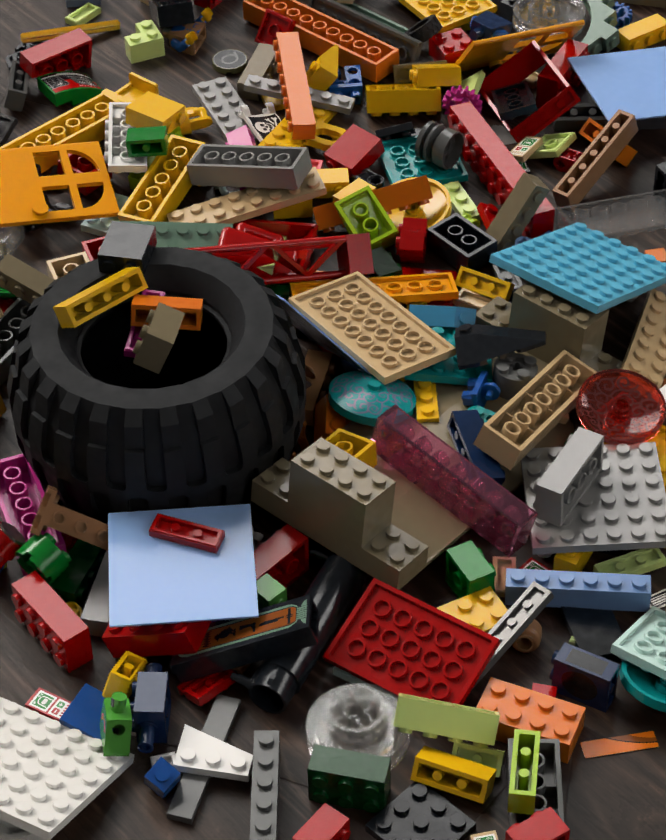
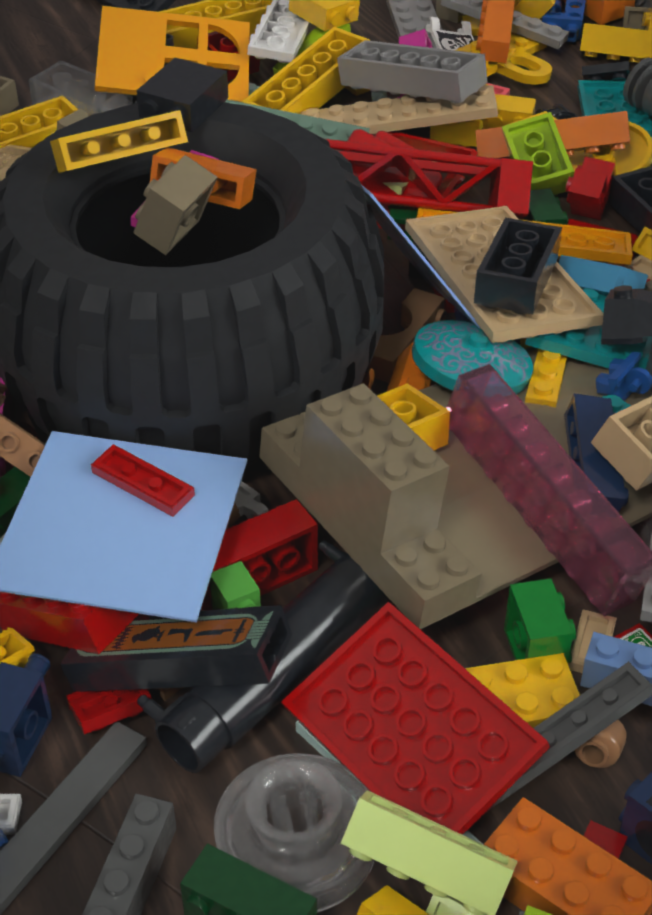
camera: 15 degrees right, 0 degrees up
(147, 141) = (301, 27): green brick -> none
(201, 122) = (372, 25): yellow piece -> none
(211, 757) = (62, 817): white wing -> none
(354, 150) = (551, 82): brick -> none
(387, 323) = (517, 266): none -> black brick

